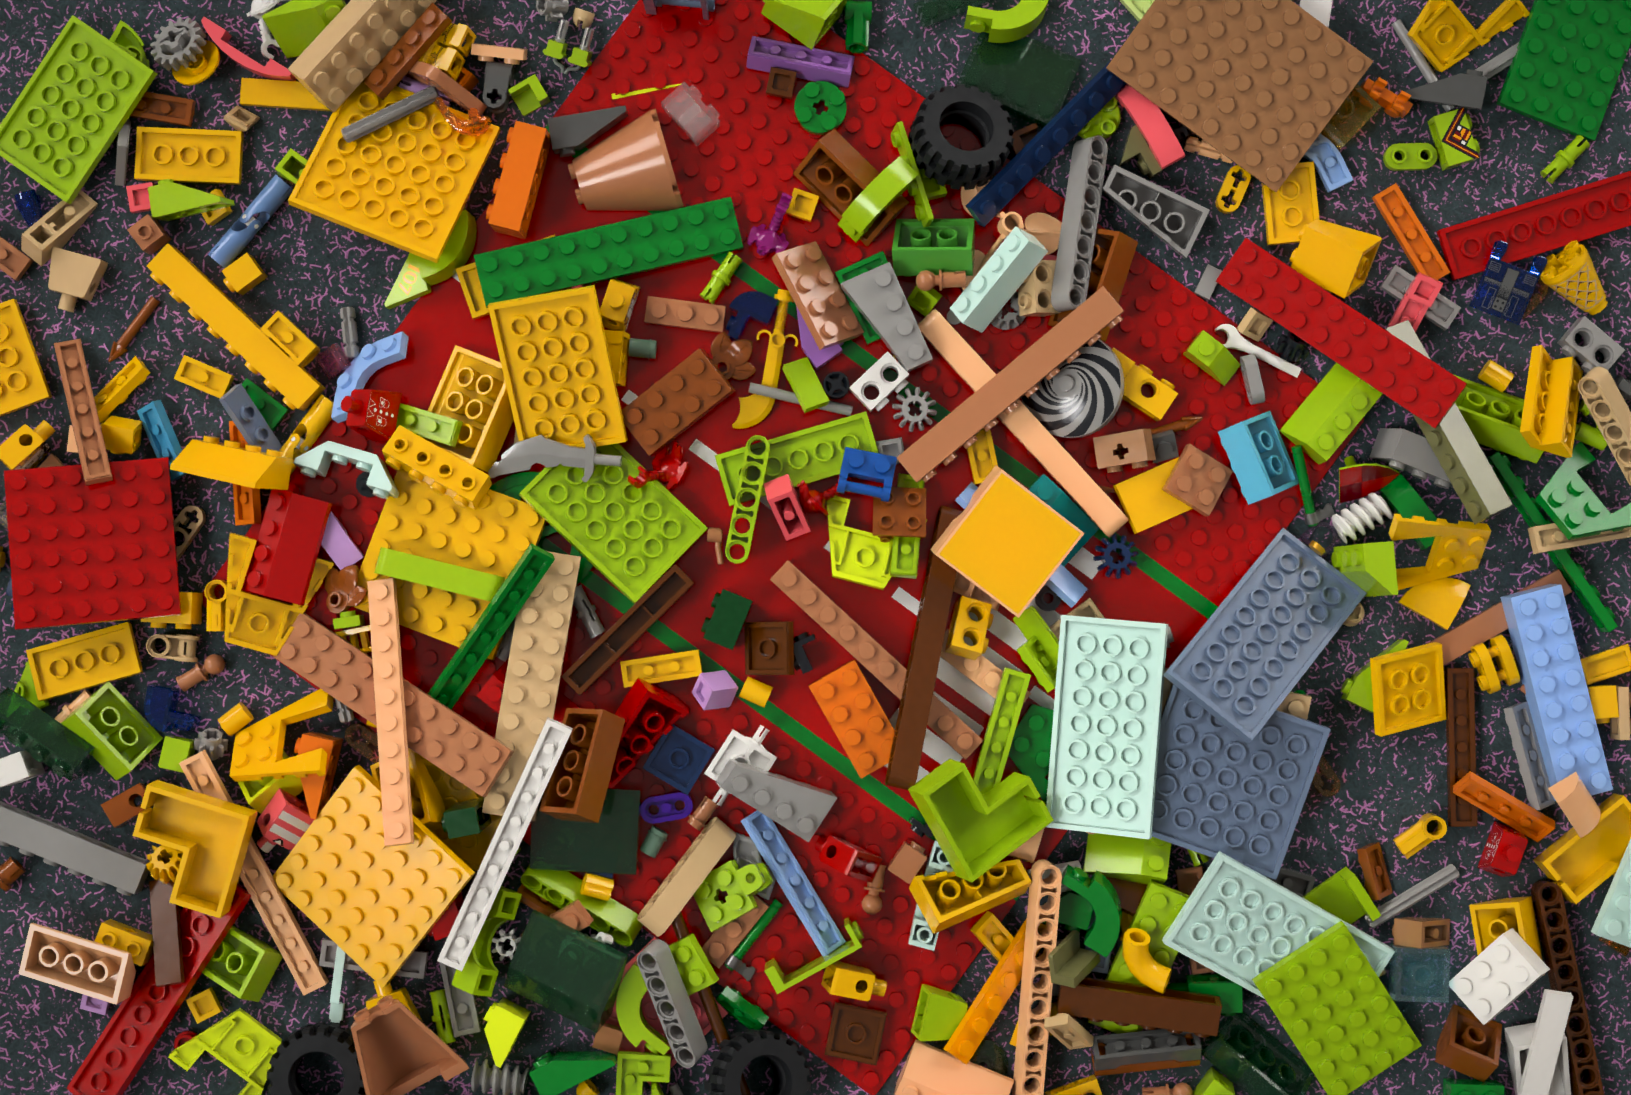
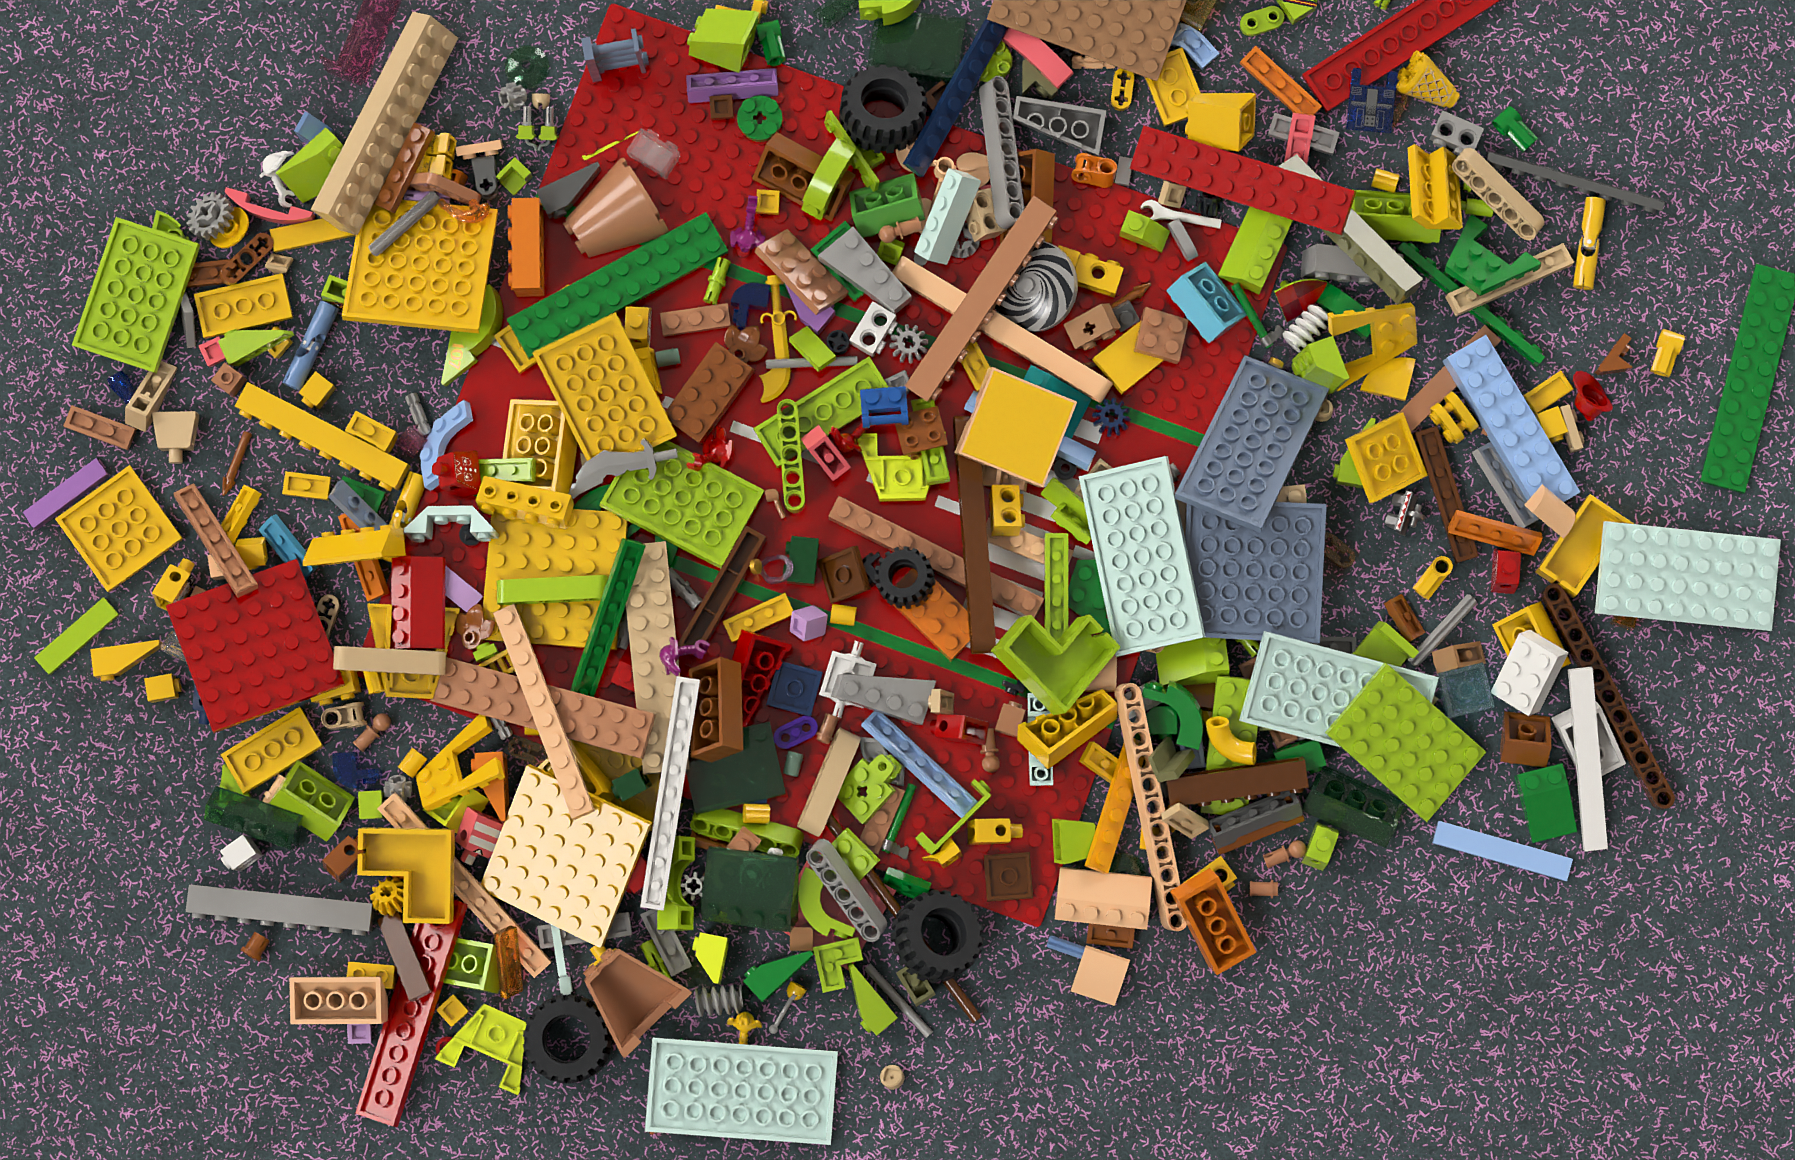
camera: 10 degrees left, 5 degrees down
(219, 88) = (255, 259): none -> dark orange beam
(235, 603) = (389, 660): none -> tan beam
(278, 972) = (508, 962): none -> clear orange plate
(548, 689) = (670, 654): none -> magenta piece
(674, 614) = (756, 568): none -> piece
(794, 995) = (947, 854): none -> yellow slope
(835, 653) = (897, 561): none -> black tyre
(836, 823) = (941, 702): none -> tan plate
(1175, 273) = (1095, 171): none -> orange piece
(1414, 743) = (1408, 511): none -> flat silver hips

